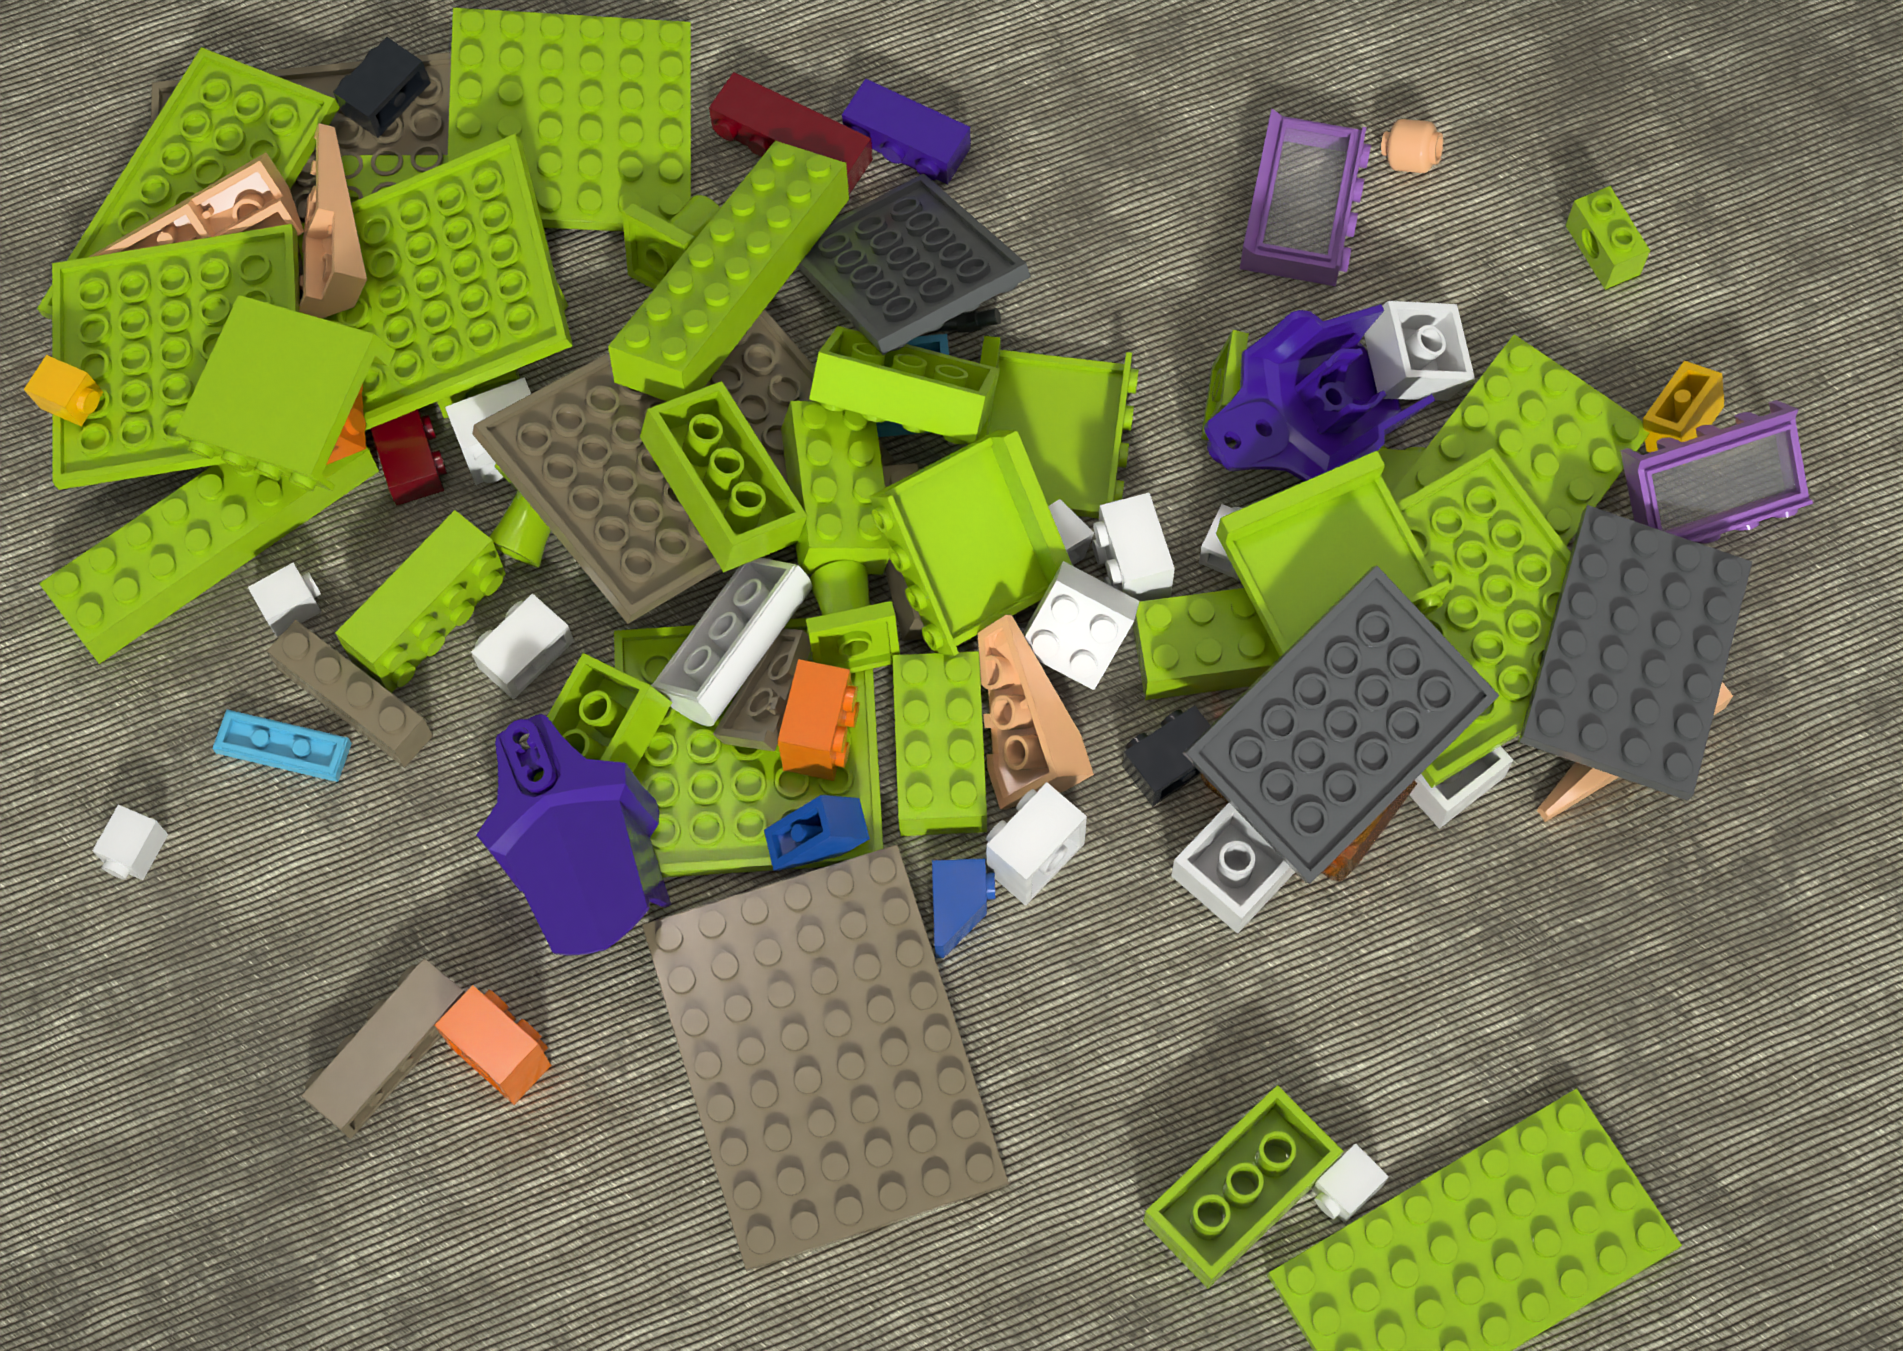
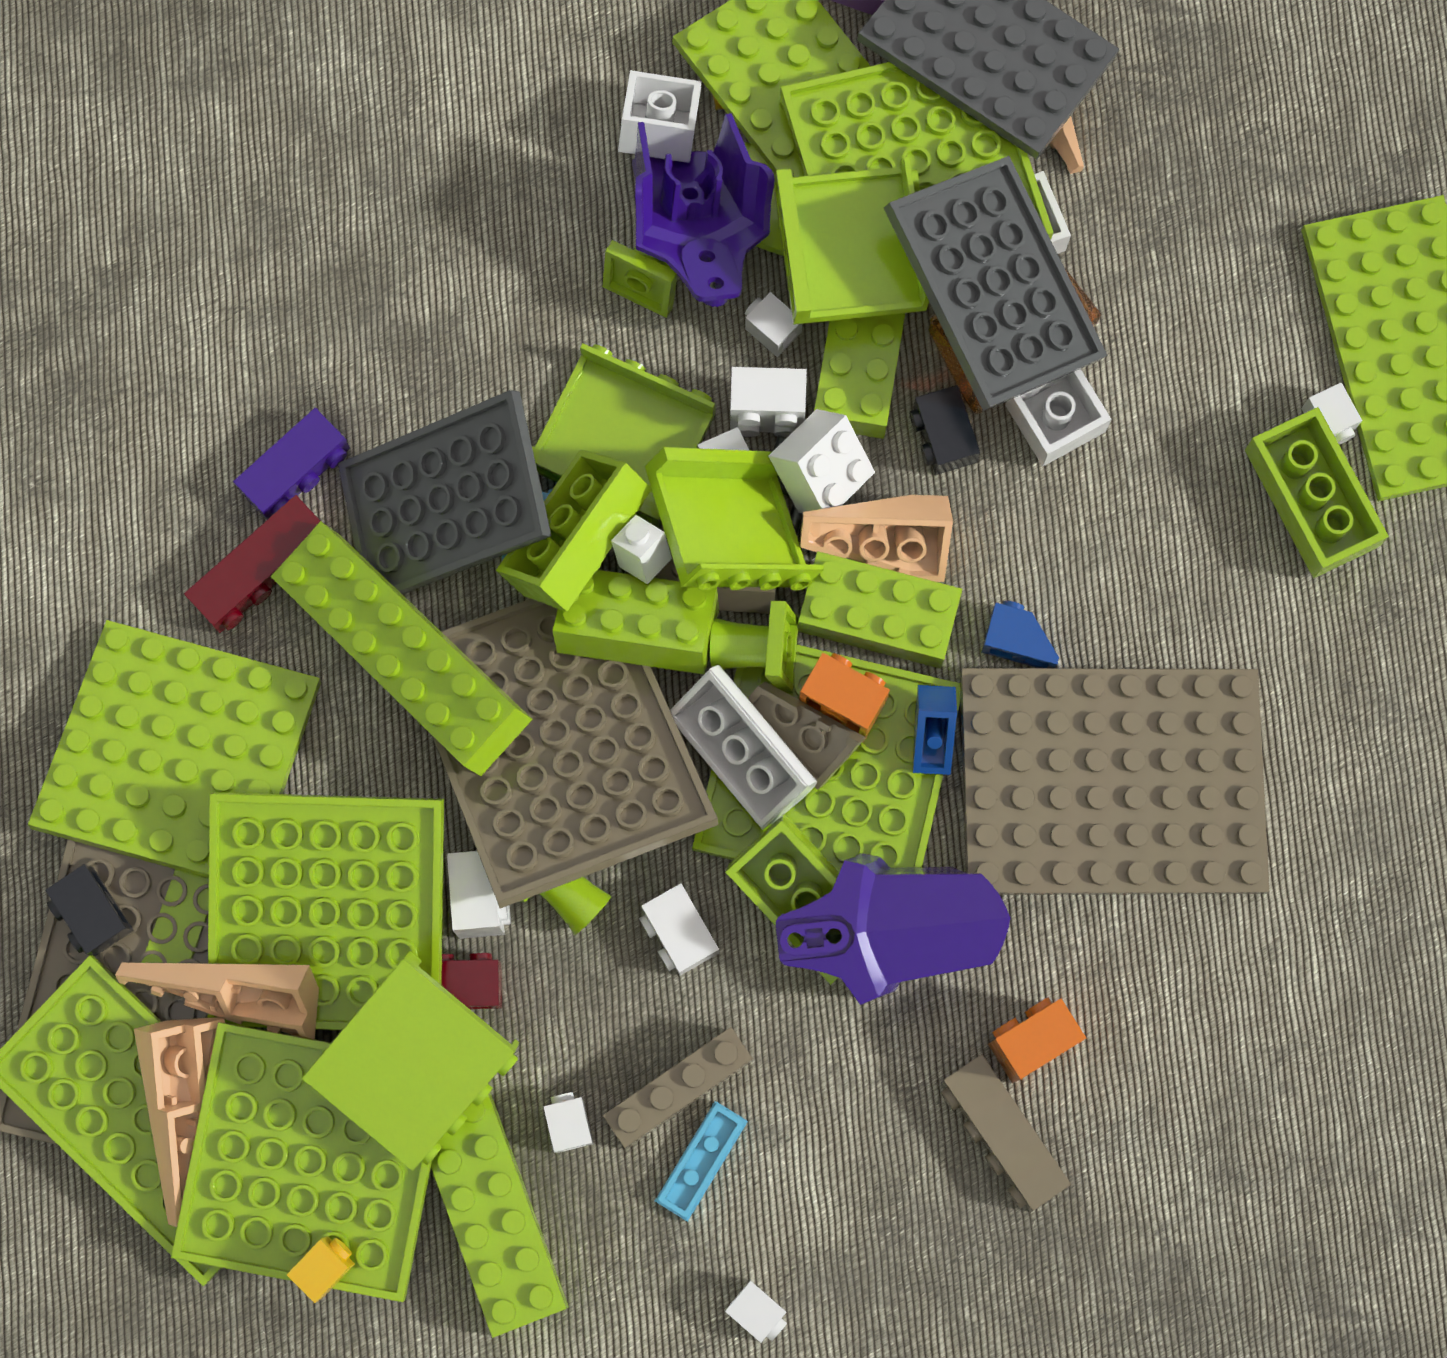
camera: 75 degrees left, 10 degrees up
(422, 602) = (620, 1004): lime brick -> none
(657, 245) = (349, 698): lime plant -> none
(722, 476) = (609, 706): lime brick -> none
(905, 451) = (641, 549): none -> white brick
(1035, 842) = (994, 558): white brick -> none
(1305, 200) = (478, 156): window -> none
(1412, 146) = (458, 54): light nougat head -> none

